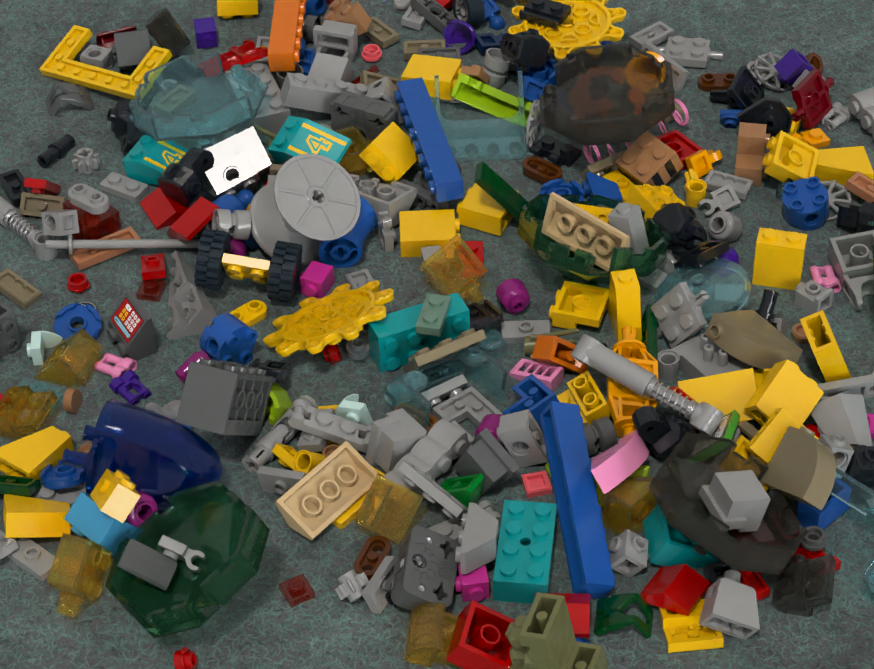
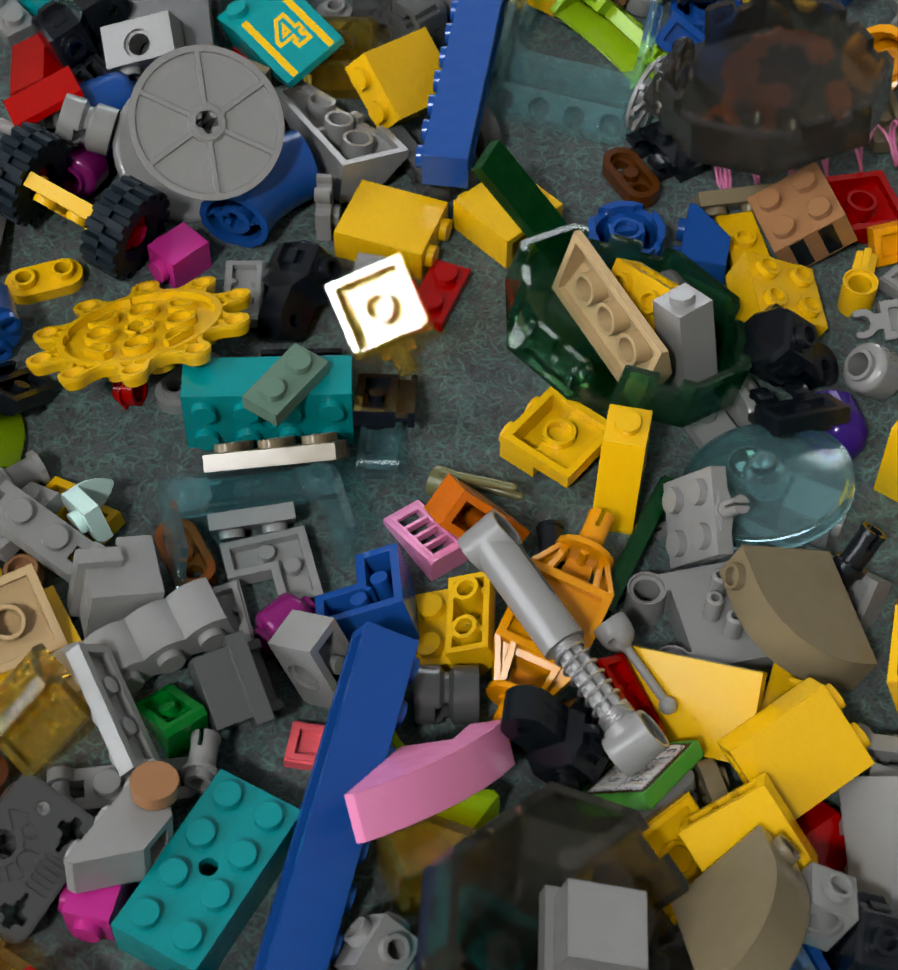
camera: 20 degrees right, 10 degrees up
(396, 270) = (295, 289): none -> black piece
(482, 509) = (154, 785): none -> medium nougat tile
(491, 503) = (202, 760): none -> light grey pin
(512, 296) = (459, 383): magenta head -> none
(517, 330) = (451, 449): light grey plate -> none
(670, 377) = (617, 635): none -> light grey hinge

